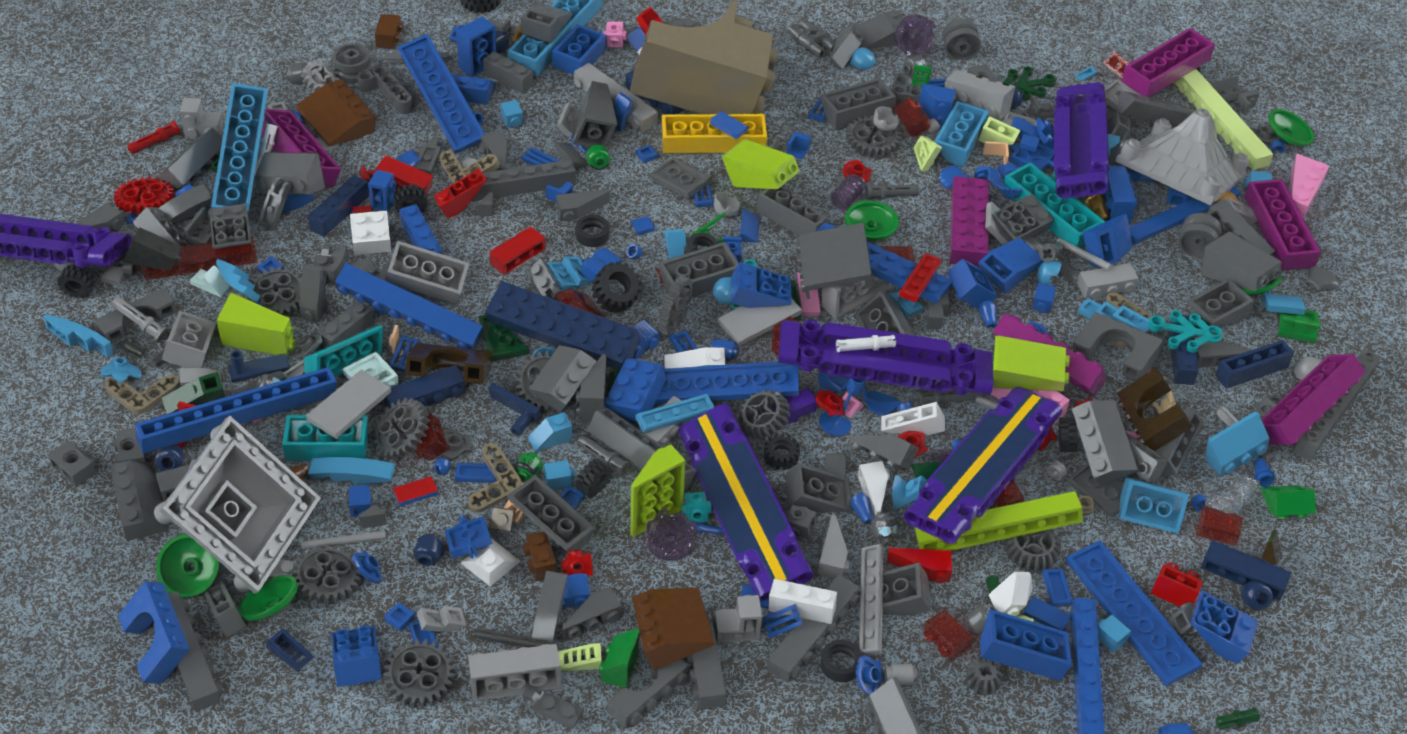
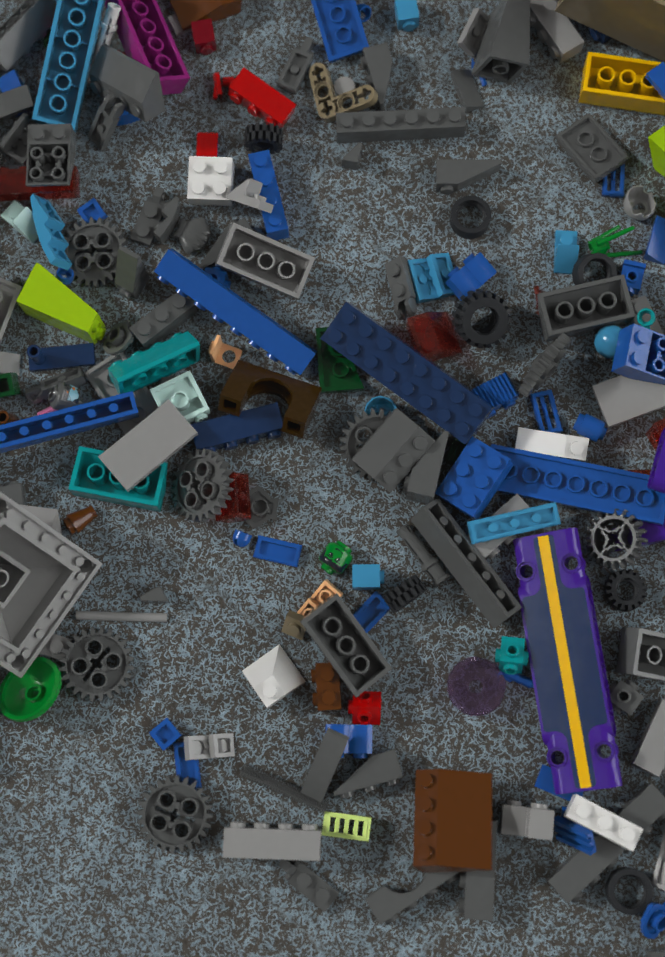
camera: 20 degrees right, 30 degrees up
(272, 645) = (39, 758): dark blue slope -> none
(338, 205) = (180, 130): dark blue brick -> none
(347, 146) = (204, 36): none -> dark red brick
(355, 656) = (112, 775): blue slope -> none
(357, 470) = (142, 526): dark azure slope -> none
(359, 499) = (145, 571): blue panel -> none
(367, 566) = (140, 664): blue animal -> none
(382, 190) = (232, 119): blue brick -> none
(403, 339) = (225, 347): blue tile -> none
(407, 232) = (249, 194): none -> light grey slope
(409, 158) = (269, 68): blue animal -> none
(415, 491) = (207, 565): red tile -> none
(428, 549) = (208, 652): dark blue head -> none
(459, 195) = (322, 140): red slope -> none
(468, 537) = (253, 647): blue plate -> none
(500, 485) = (301, 578): dark tan beam -> none
(517, 250) = (376, 233): red brick -> none
(527, 410) = (349, 481): dark blue piece -> none
(541, 157) = (417, 79): blue tile -> none
(551, 191) = (441, 149): blue panel -> none
(551, 432) = (368, 515): dark azure slope -> none
(598, 157) = (498, 99): green head -> none
(620, 658) = (388, 844): green slope -> none
(622, 109) = (541, 33): blue slope -> none
(632, 254) = (511, 259): blue hinge -> none
(642, 225) = (532, 216): blue tile -> none
(646, 153) = (558, 101): blue tile -> none
(657, 488) = (480, 635): lime slope -> none

